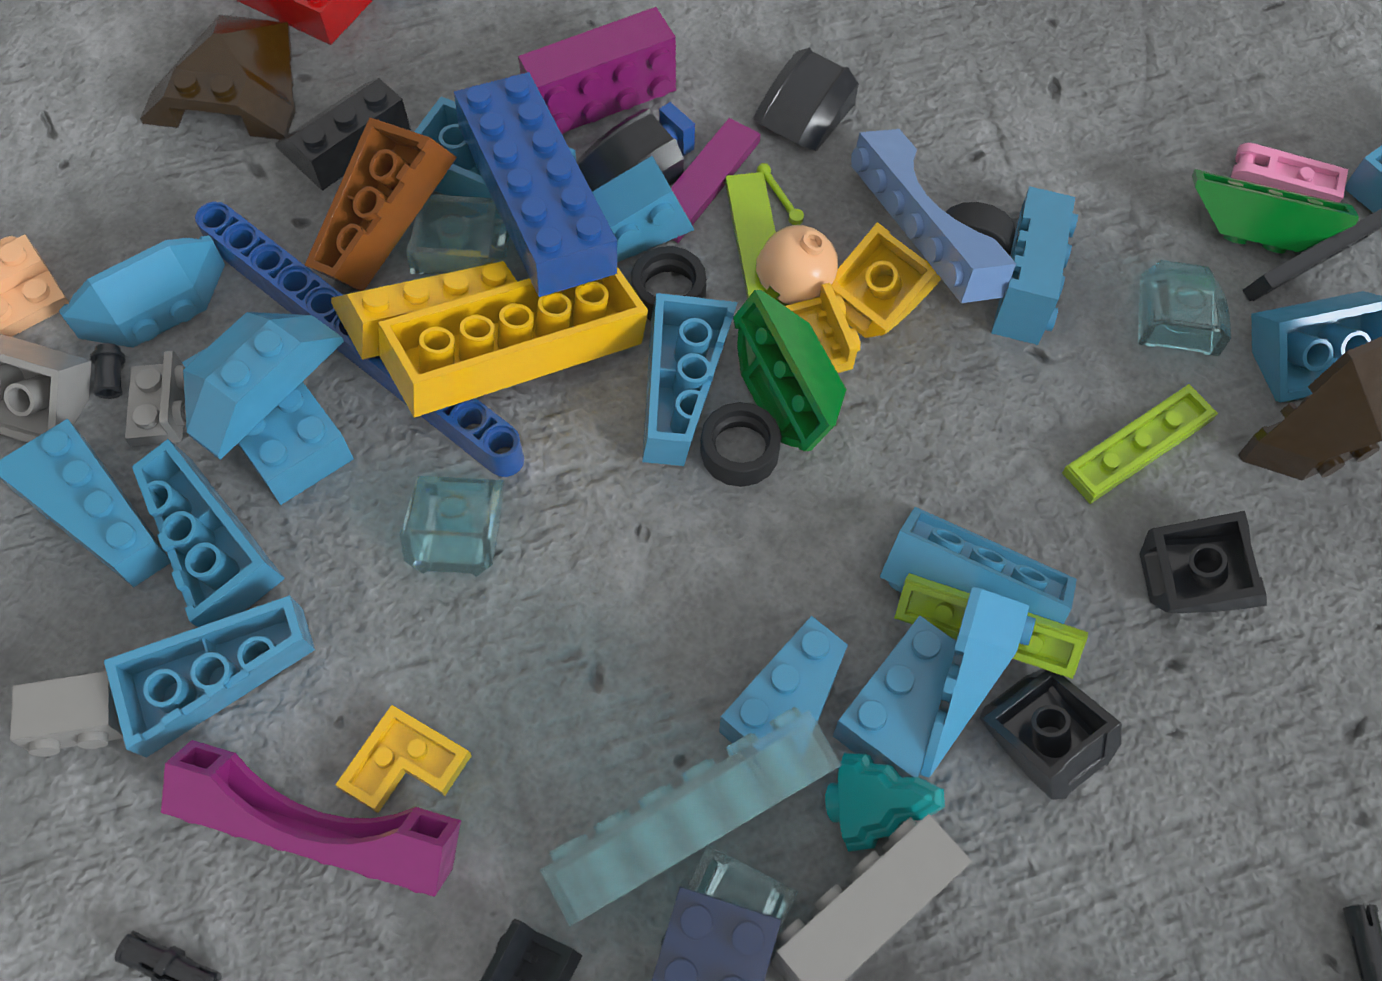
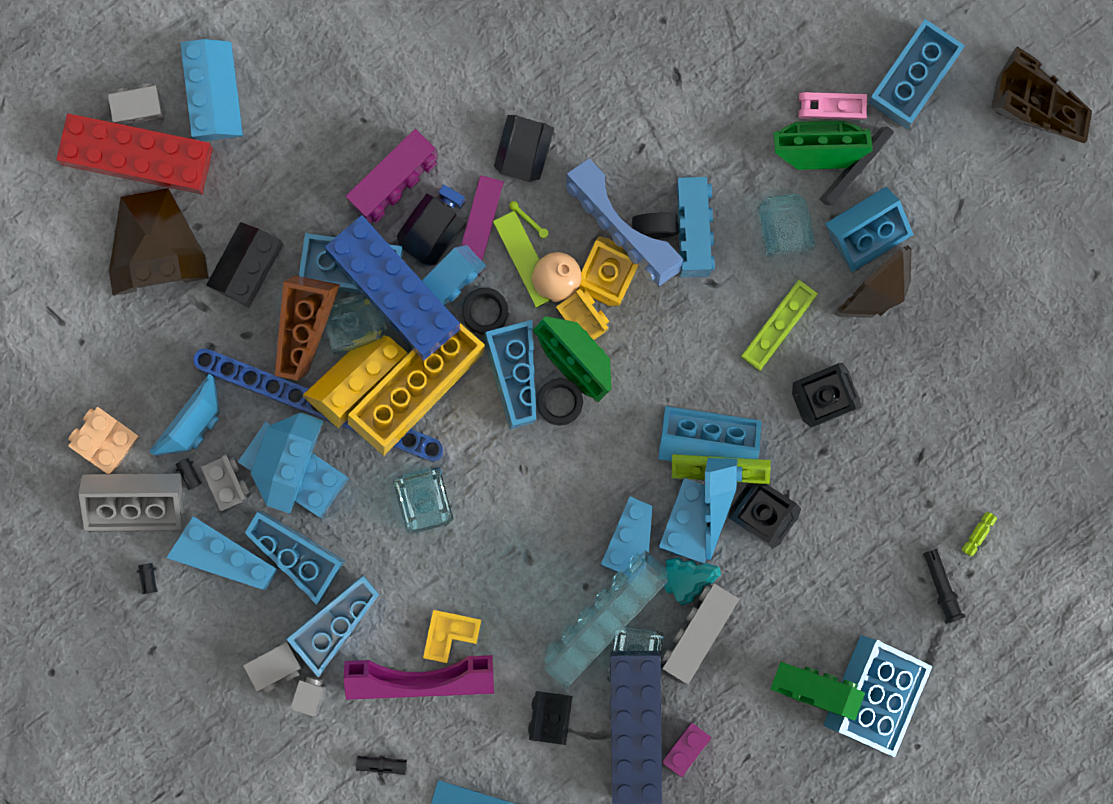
camera: 20 degrees left, 20 degrees up
(93, 780) = (309, 696): none -> light grey brick

